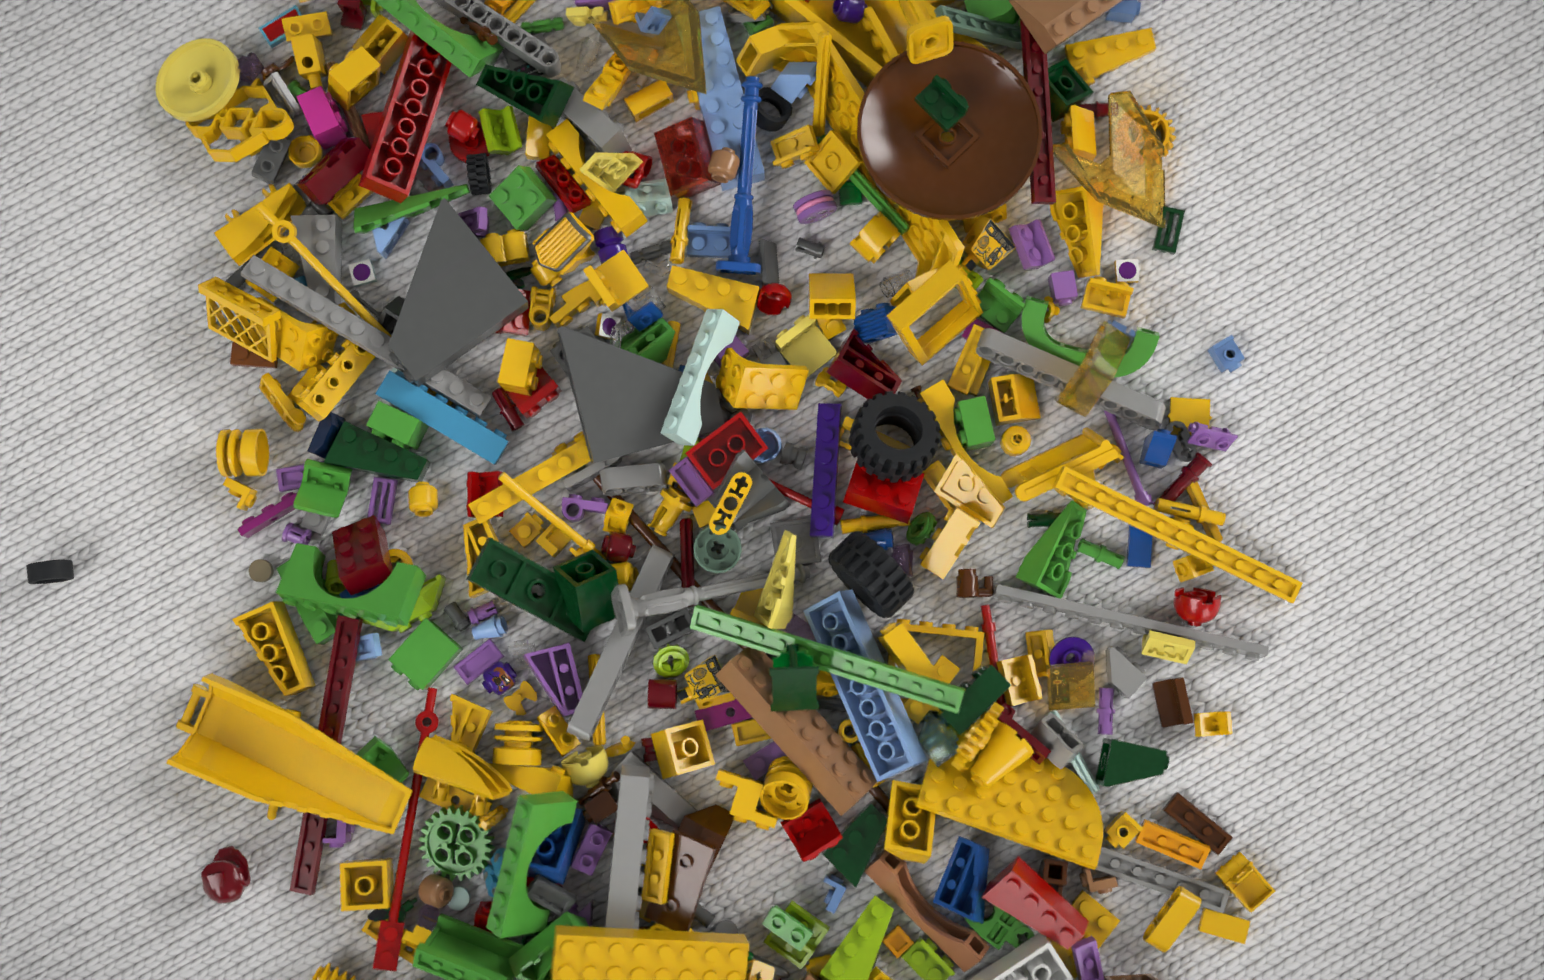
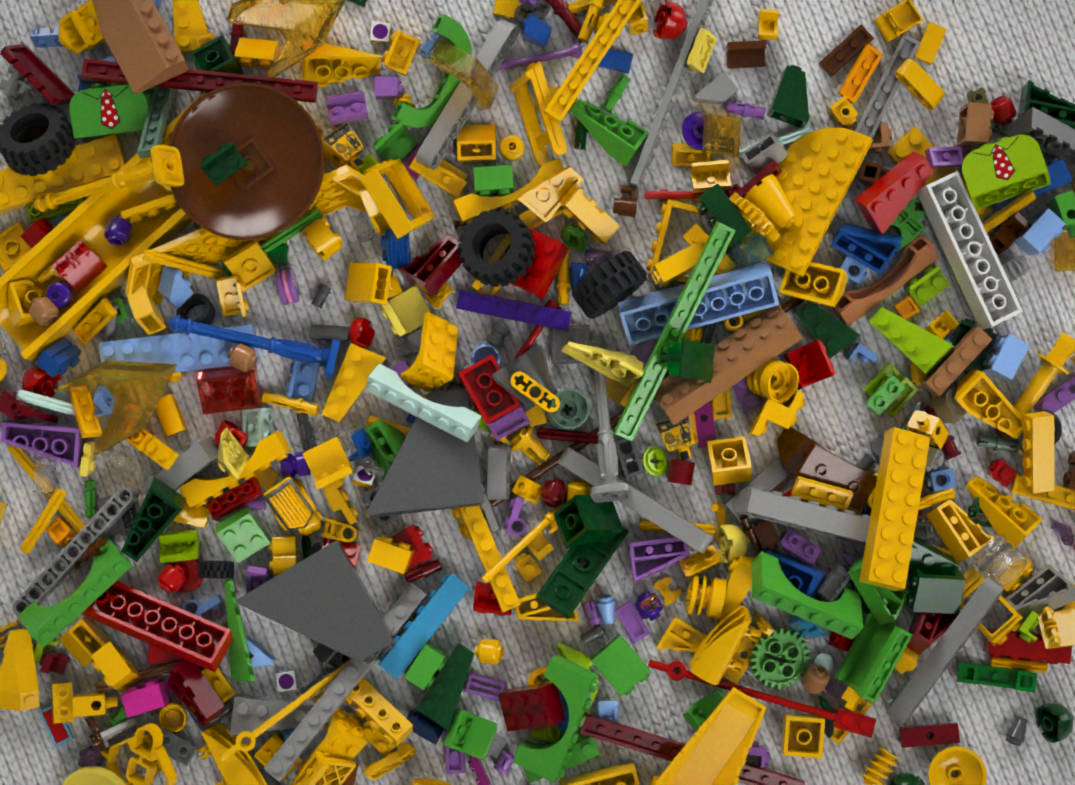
camera: 85 degrees left, 5 degrees up
(930, 879) = (861, 274): none -> medium blue brick

